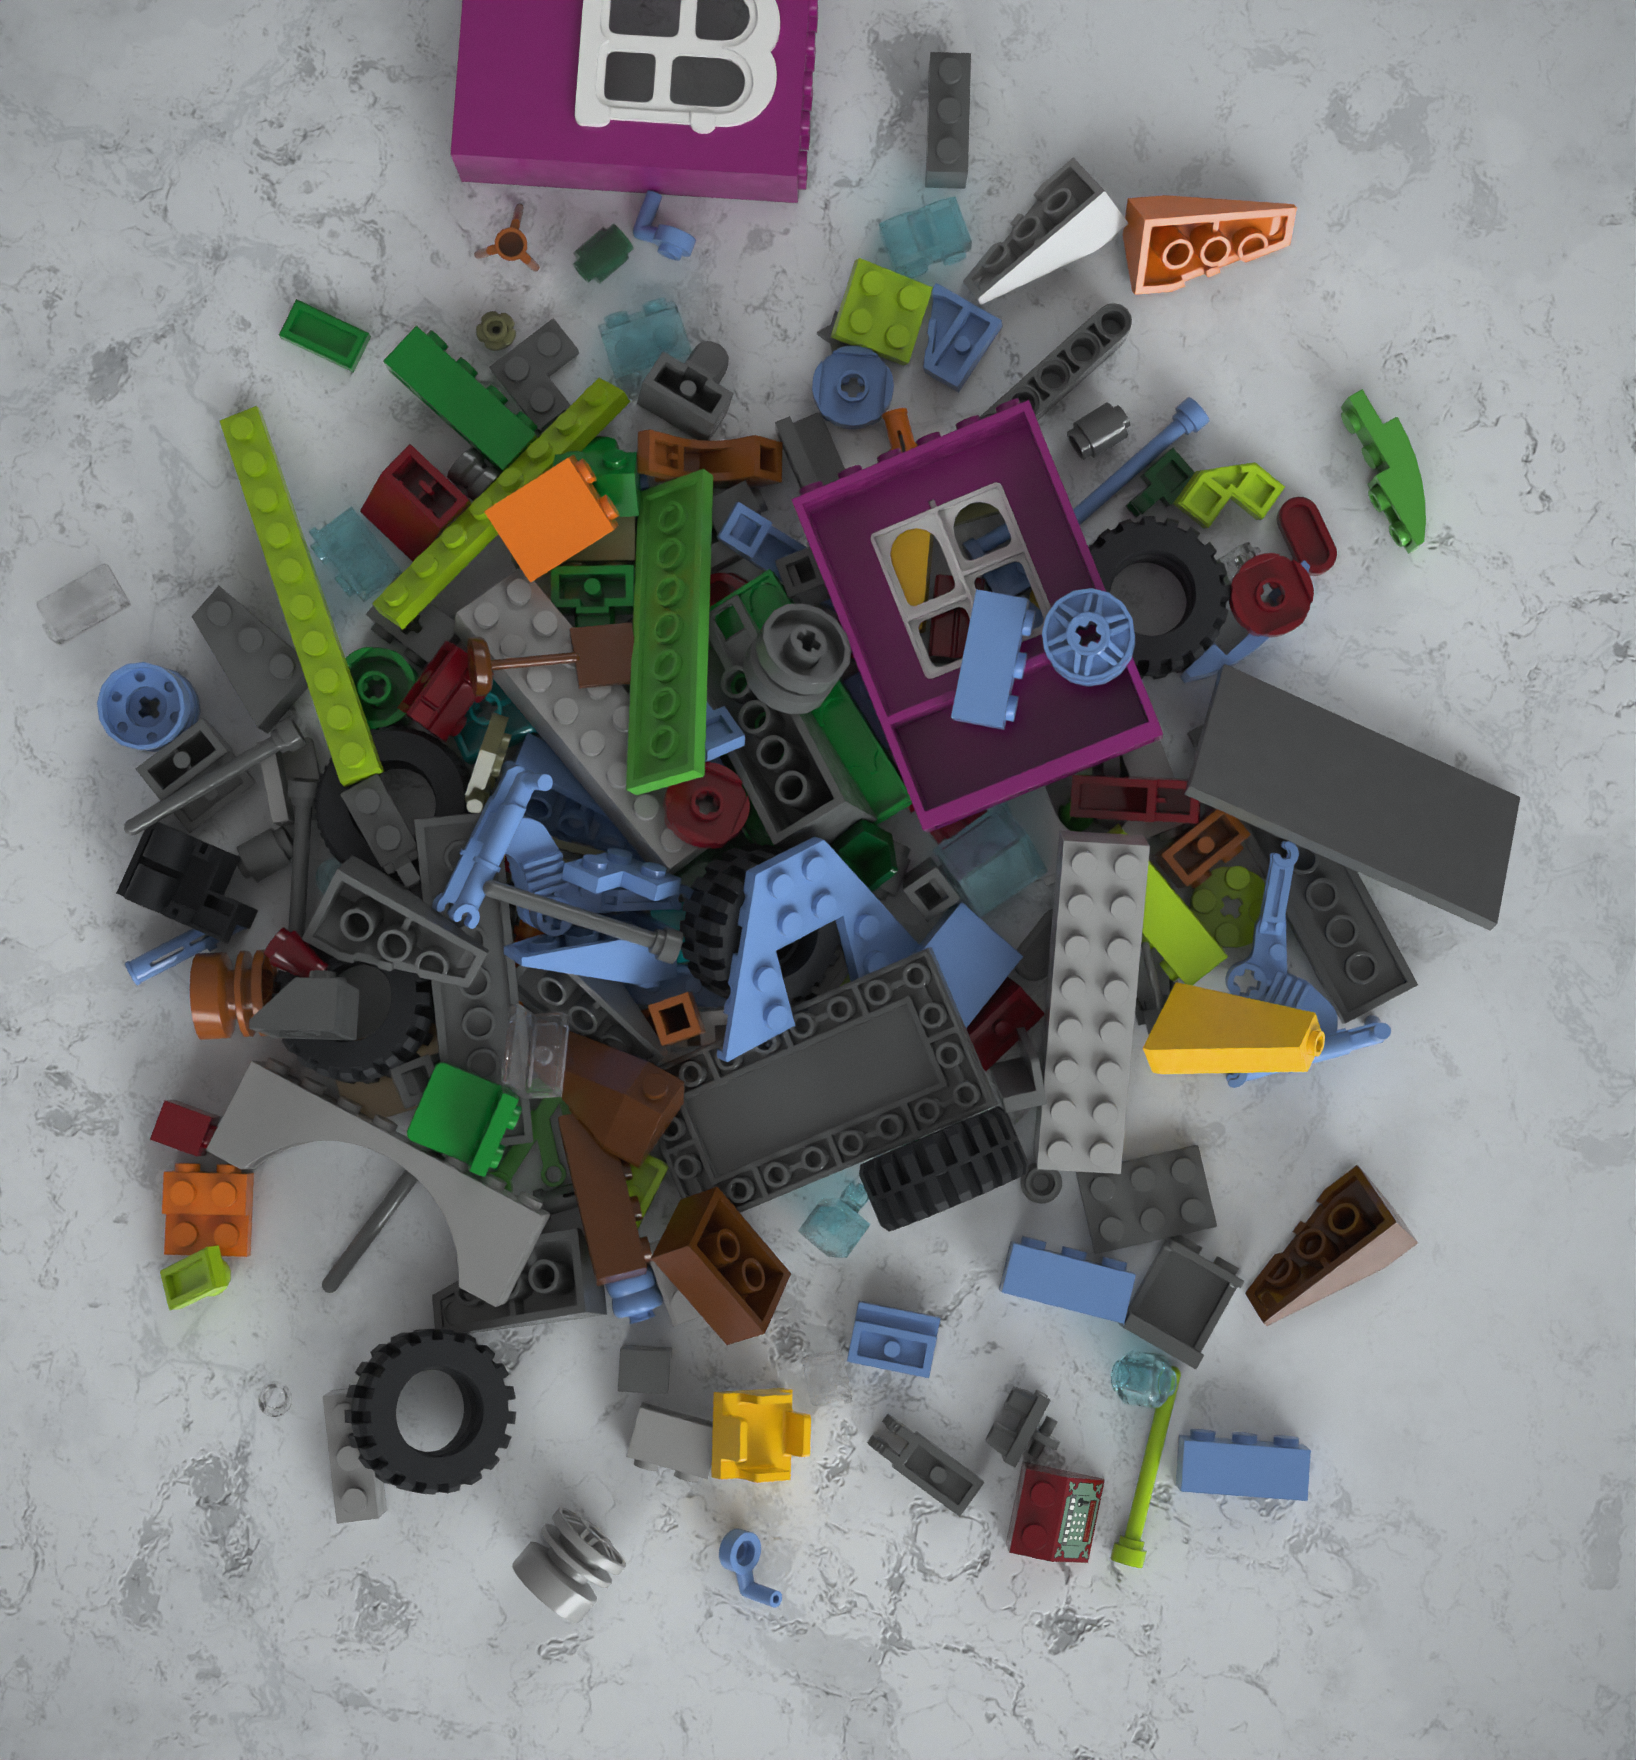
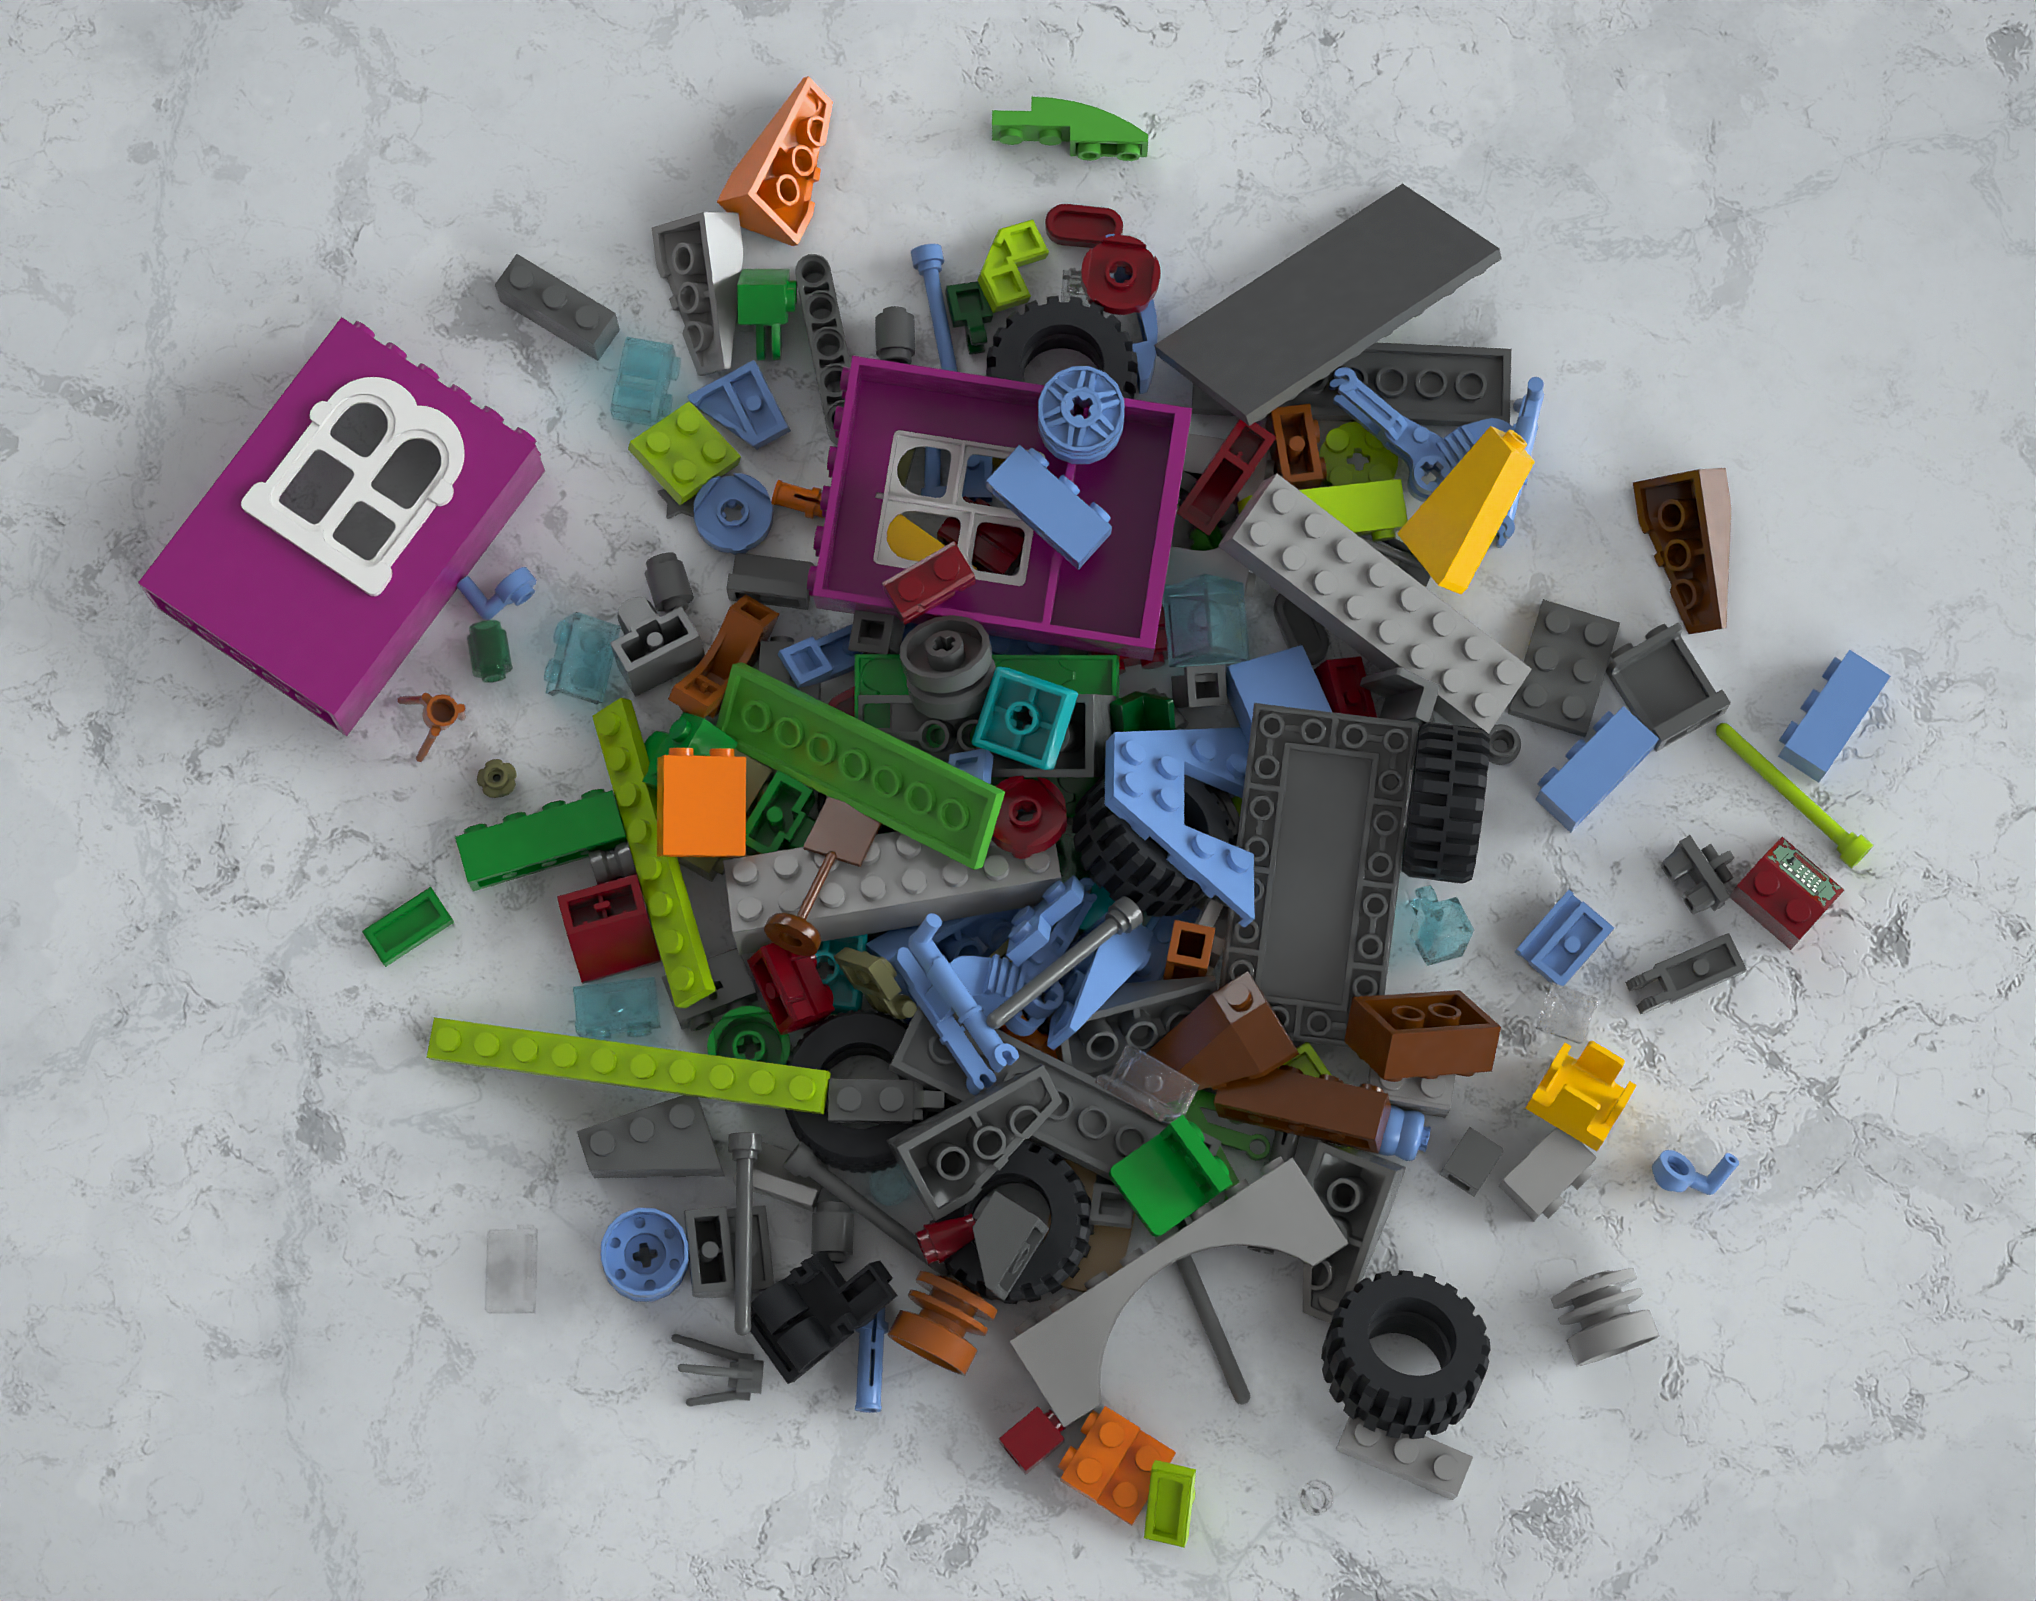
camera: 60 degrees left, 10 degrees down
(99, 852) = (744, 1375): none -> dark grey plant
(527, 372) = (549, 774): dark grey plate -> none
(754, 370) = (668, 582): none -> dark grey brick
(766, 738) = (1002, 732): none -> teal brick
(857, 594) = (929, 582): none -> dark red brick
(1057, 295) = (764, 301): none -> green brick
(1143, 1379) = (1715, 752): clear light blue head -> none

